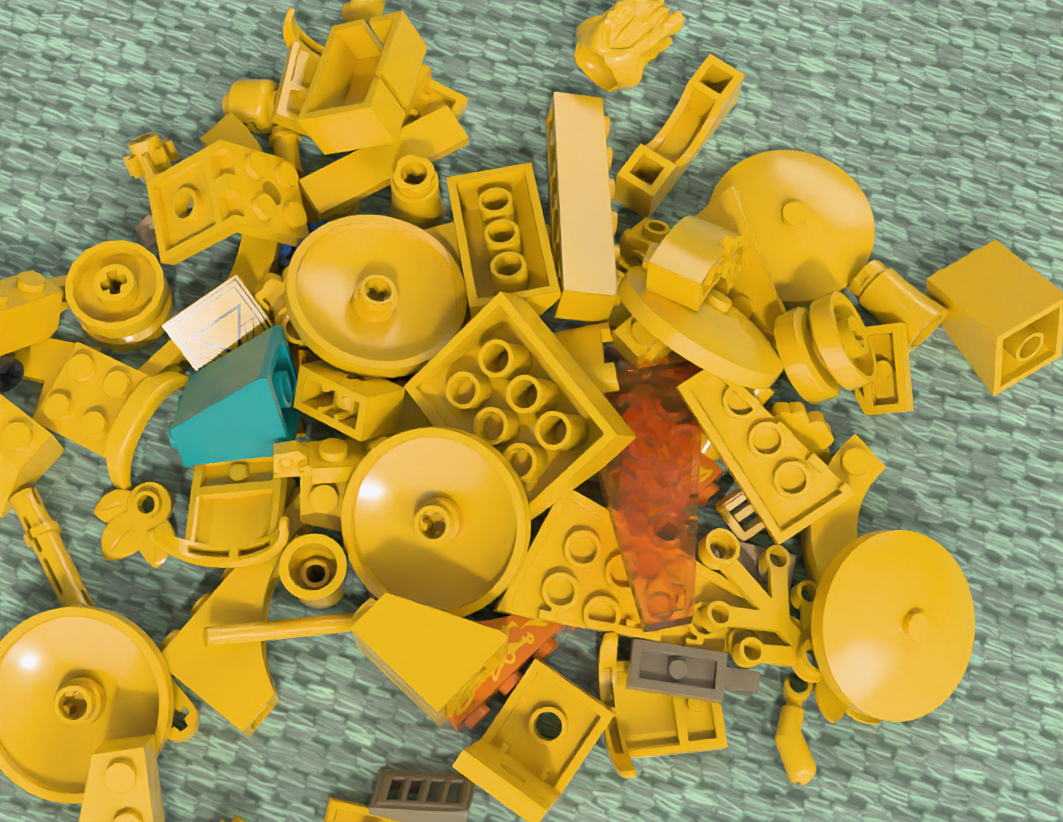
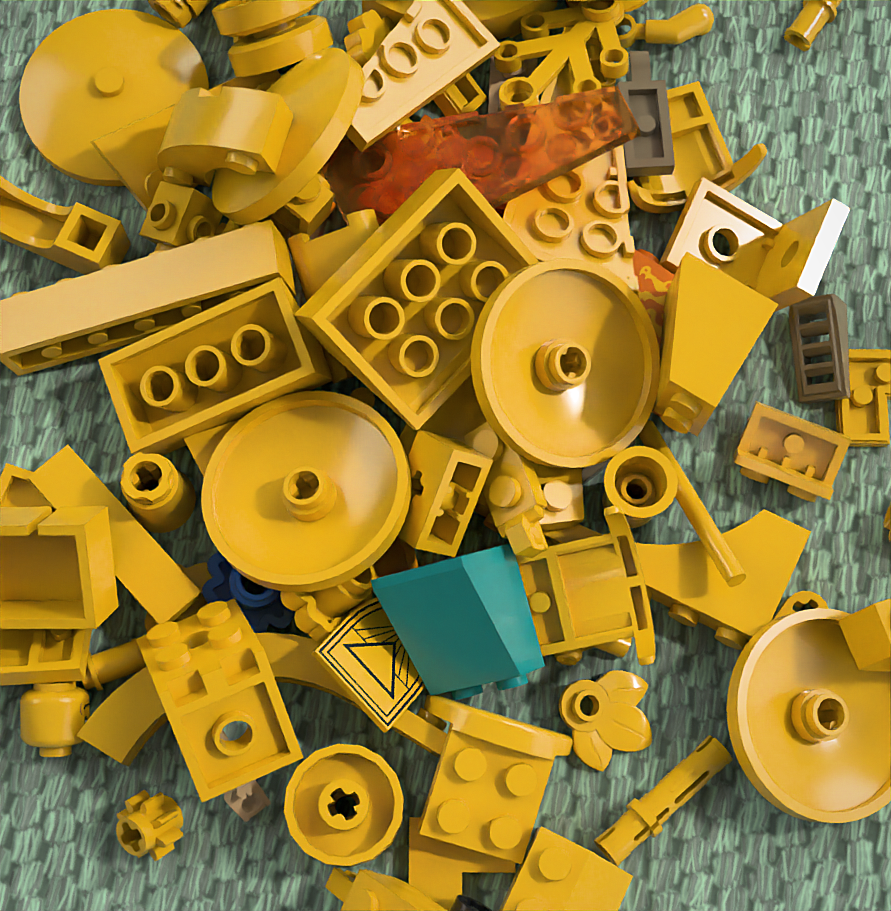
camera: 100 degrees left, 5 degrees up
(327, 741) = (791, 452): none -> yellow bracket

